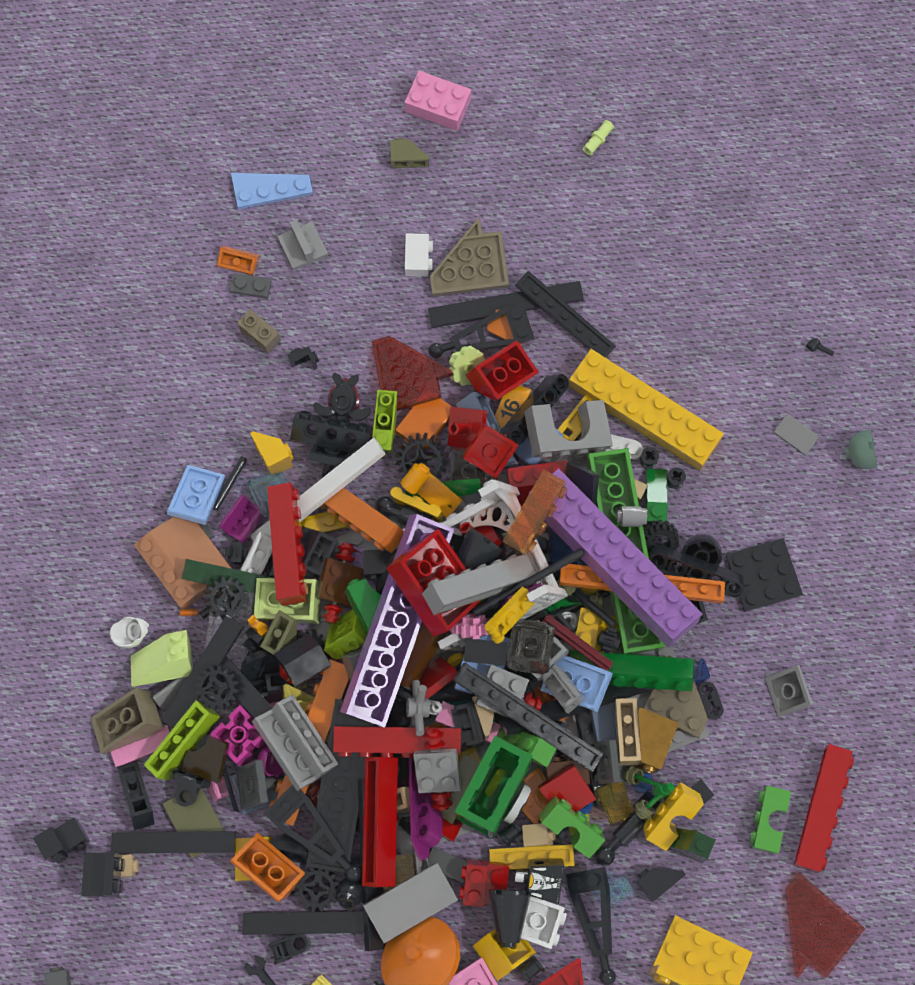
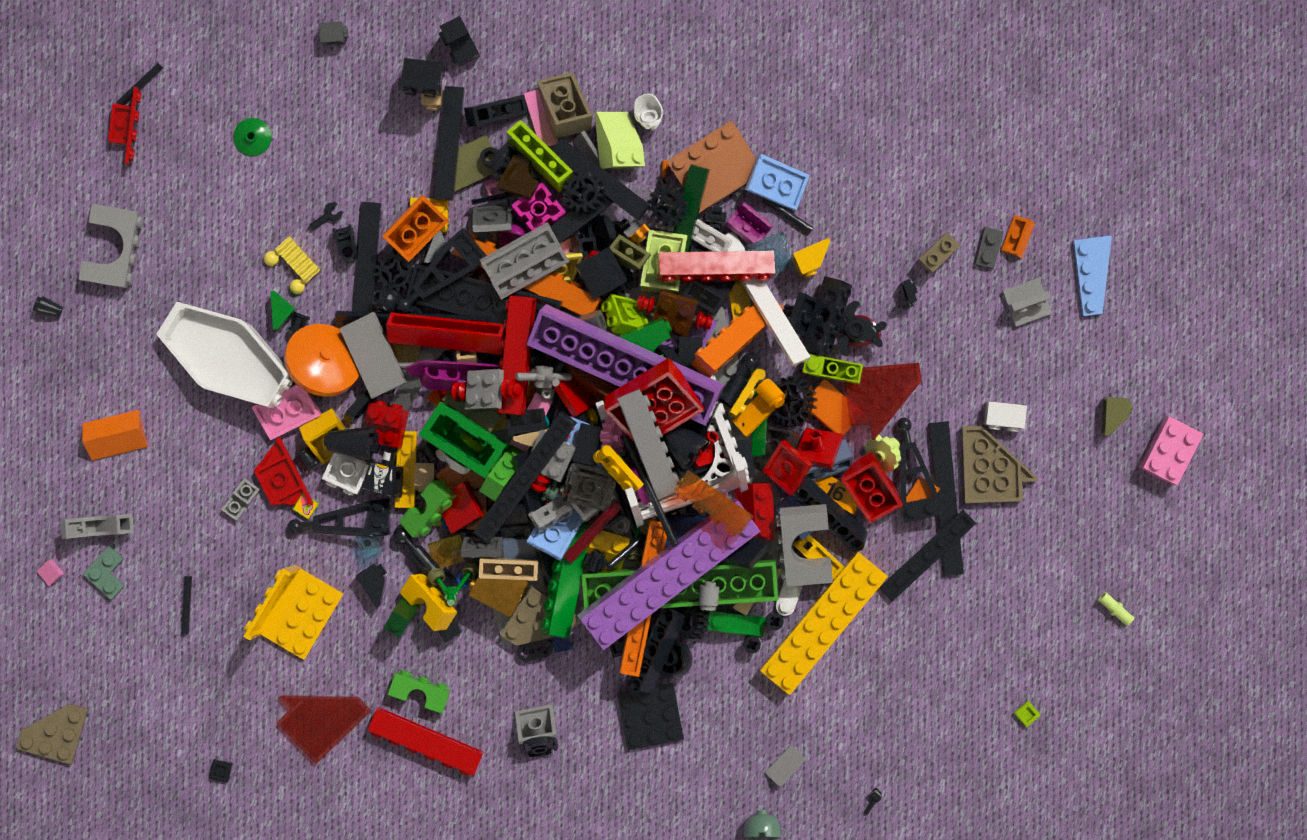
camera: 95 degrees right, 15 degrees up
(468, 915) = (358, 407): none -> black beam
(542, 691) = (551, 491): none -> sand green plate
(586, 968) = (305, 509): none -> tile
(711, 210) = (1027, 713): none -> lime tile
(812, 684) = (539, 746): none -> black tile

